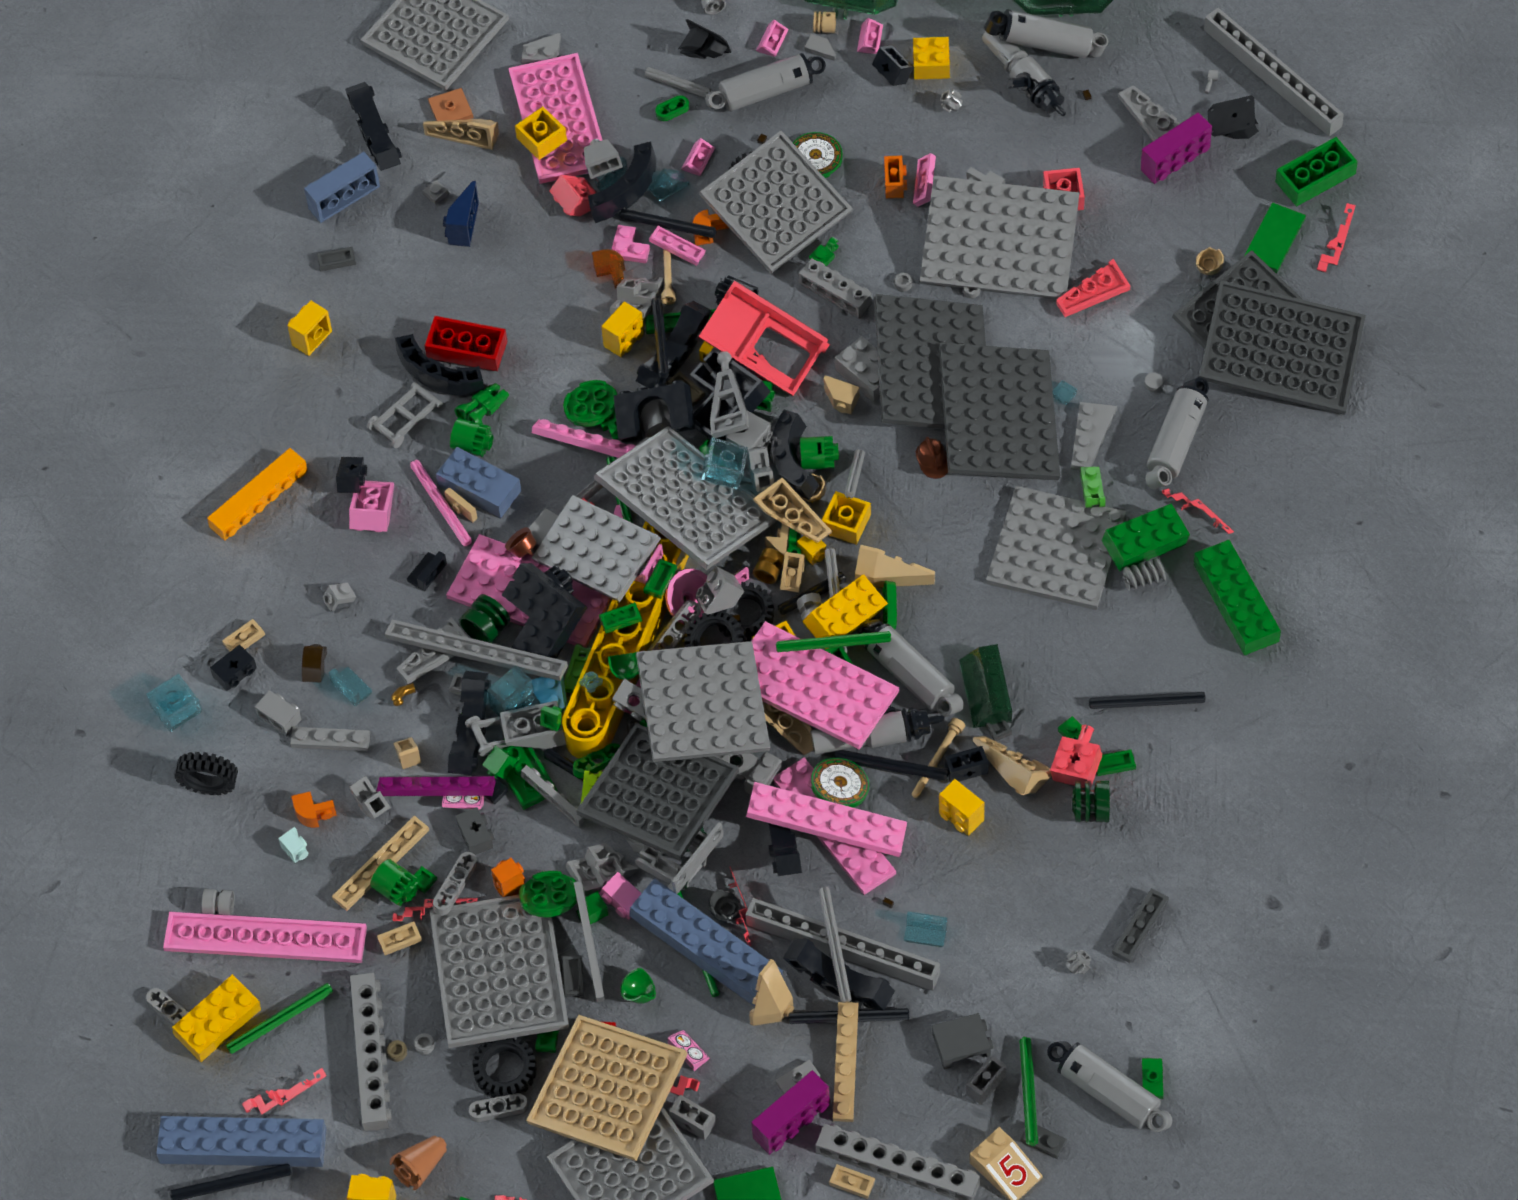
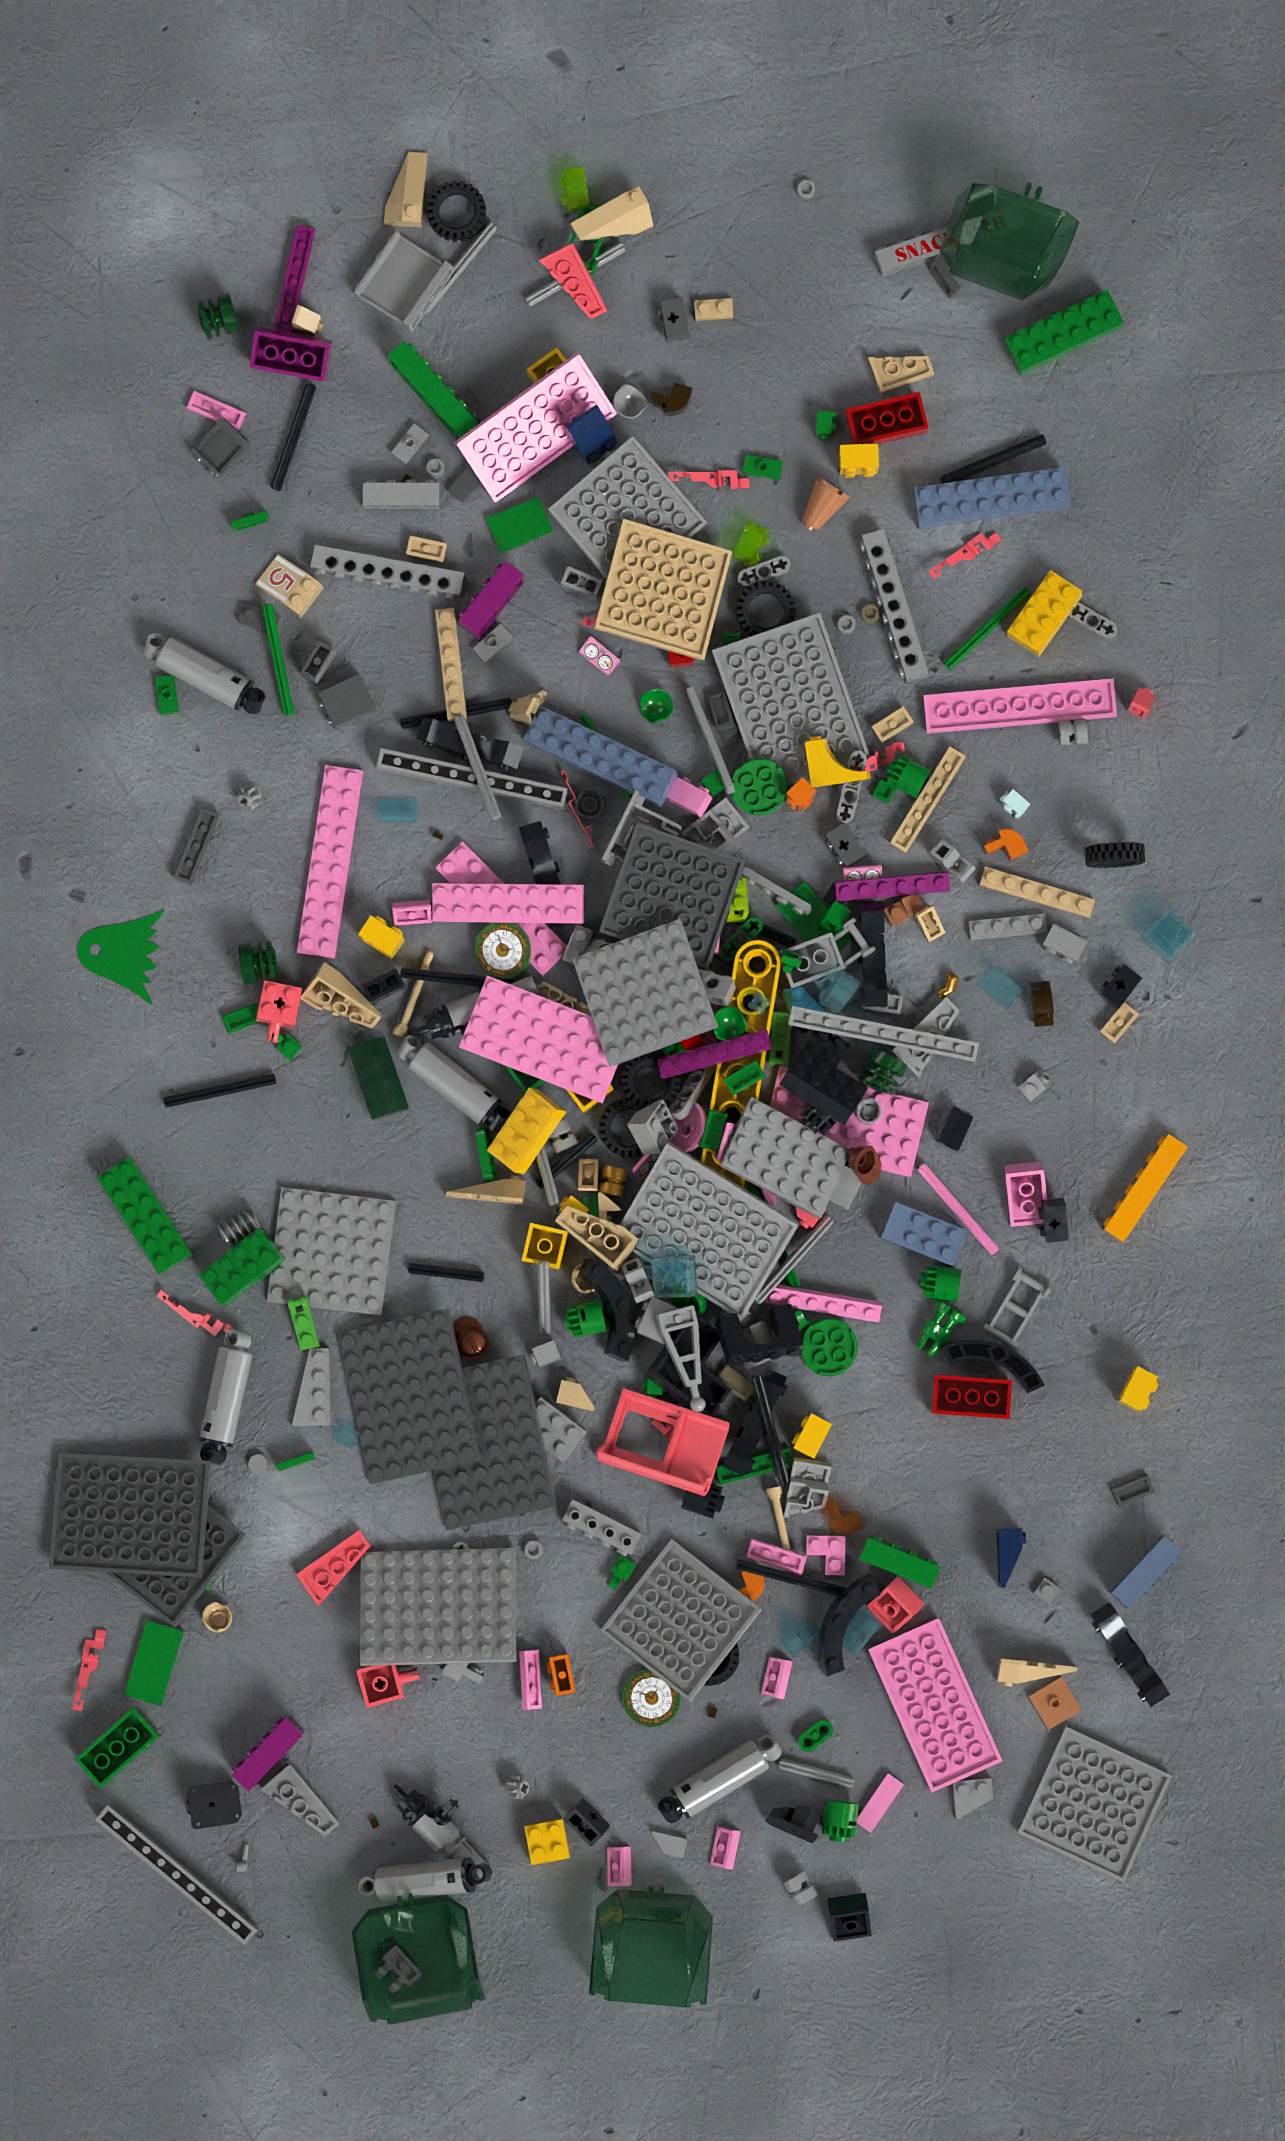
camera: 170 degrees right, 25 degrees up
(140, 917) = (1141, 702): none -> coral slope
(293, 765) = (1037, 892): none -> tan plate
(429, 767) = (903, 909): none -> nougat slope
(460, 505) = (936, 1205): tan plate -> none
(473, 893) = (825, 768): none -> yellow arch
(501, 579) = (868, 1111): none -> light grey wheel
(505, 1134) = (750, 544): none -> clear neon green brick
(541, 133) = (946, 1668): yellow brick -> none
(565, 221) = (898, 1562): none -> green brick
(601, 158) = (876, 1646): light grey torso -> none
(626, 54) = (879, 1802): none -> bright pink tile
(630, 643) = (714, 1054): none -> magenta plate
(663, 41) = (840, 1820): none -> green gear
(824, 22) = (670, 1873): tan piece -> none
(833, 641) = (529, 1084): green axle -> none
(861, 426) = (545, 1354): none -> light grey brick
(926, 836) = (412, 912): none -> bright pink slope
(946, 514) = (446, 1272): none -> black axle
(1003, 895) = (330, 861): none -> bright pink plate
(1117, 375) = (295, 1461): none -> green tile
(1231, 840) = (122, 953): none -> green piece

